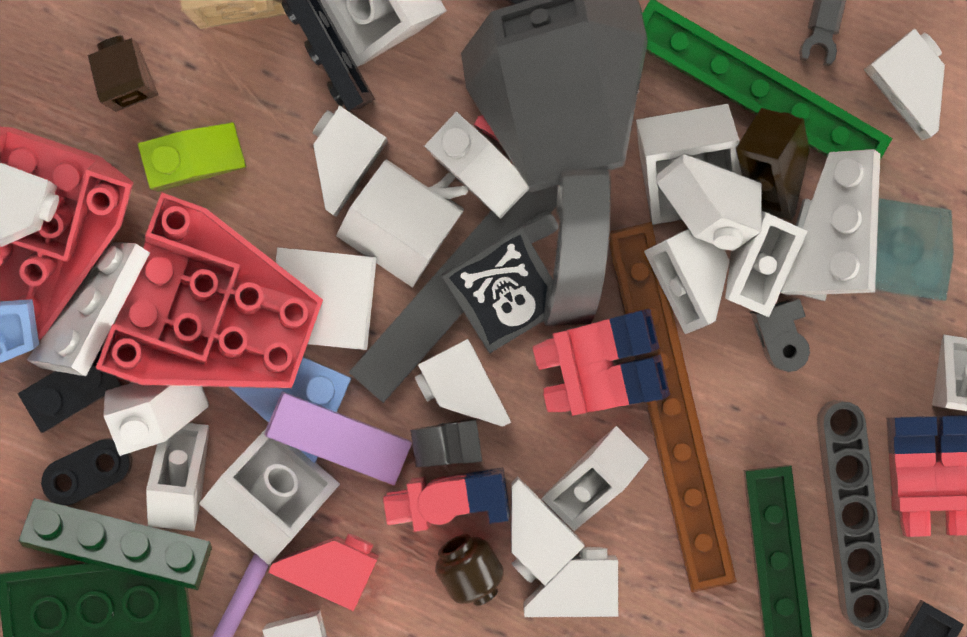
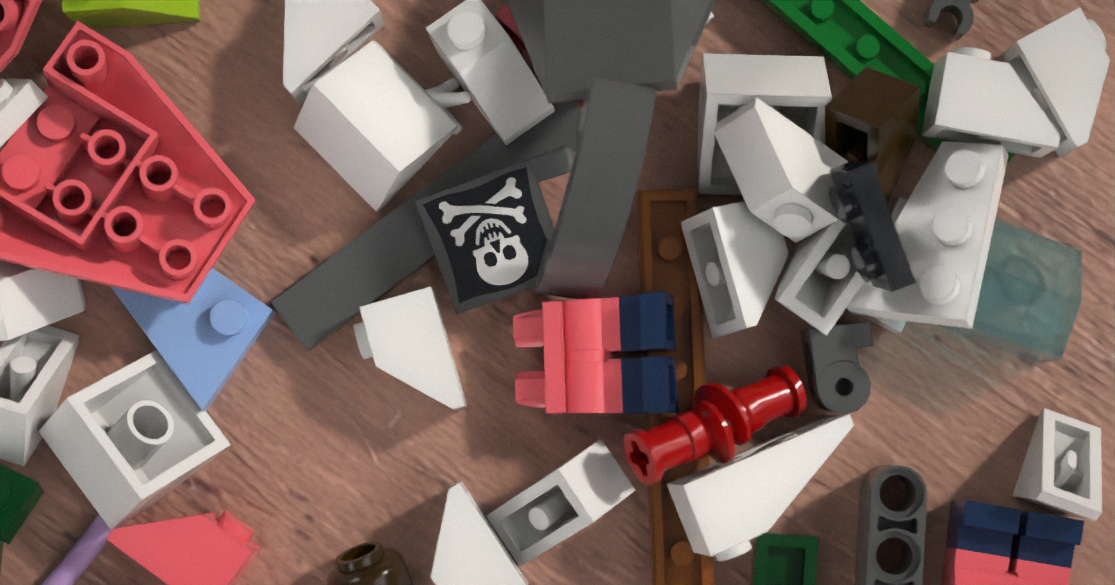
camera: 10 degrees right, 5 degrees down
(337, 438) = (237, 383): lavender tile -> none
(346, 290) = (288, 194): white slope -> none
(446, 444) = (378, 419): dark grey leg -> none
(447, 497) = (348, 490): coral hips -> none
(699, 398) = (715, 423): none -> red piece
(734, 441) = (746, 496): none -> white slope
(794, 250) = (878, 250): none -> black plate
(855, 119) = (985, 104): none -> white slope

